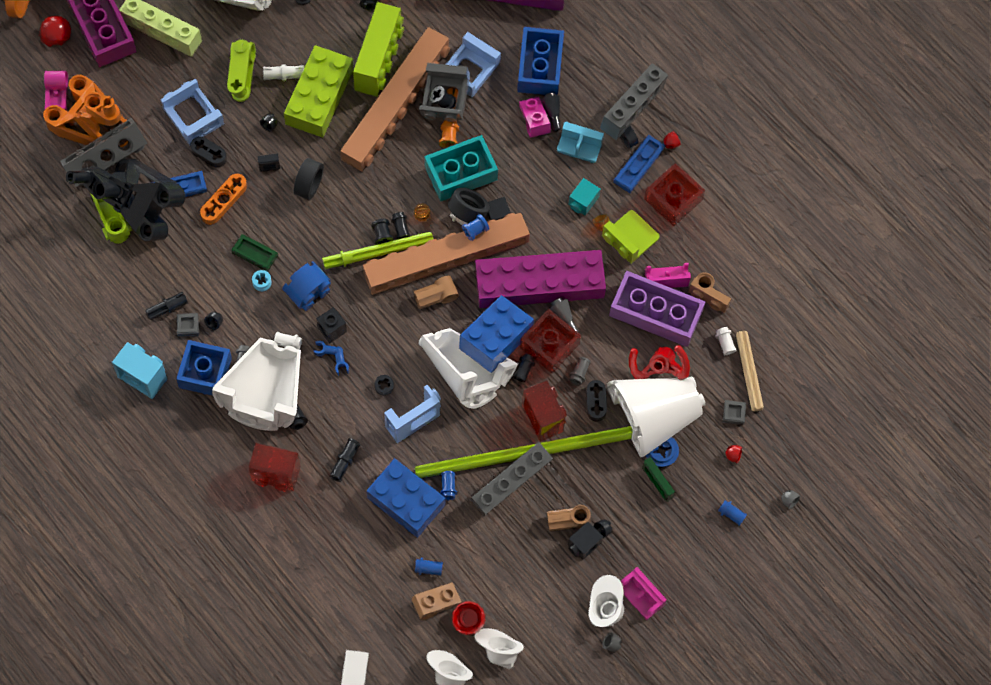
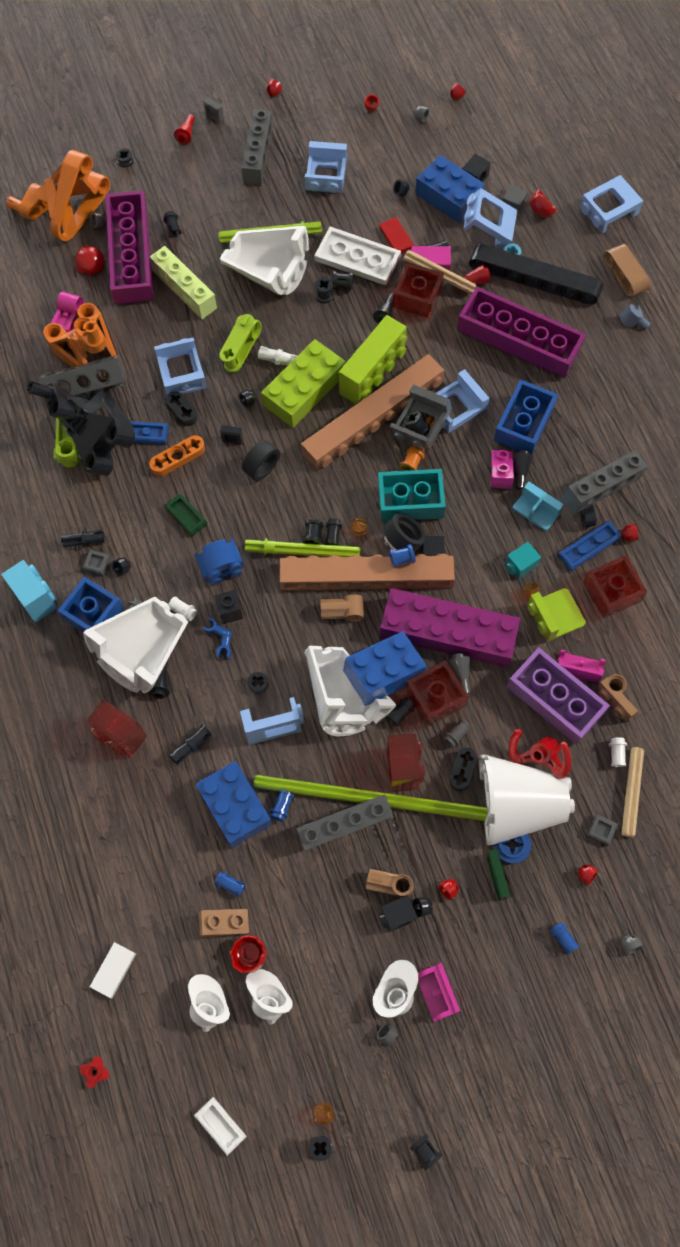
camera: 25 degrees right, 0 degrees up
(265, 286) = (181, 536): medium azure bush -> none
(620, 506) = (449, 889): none -> red hinge

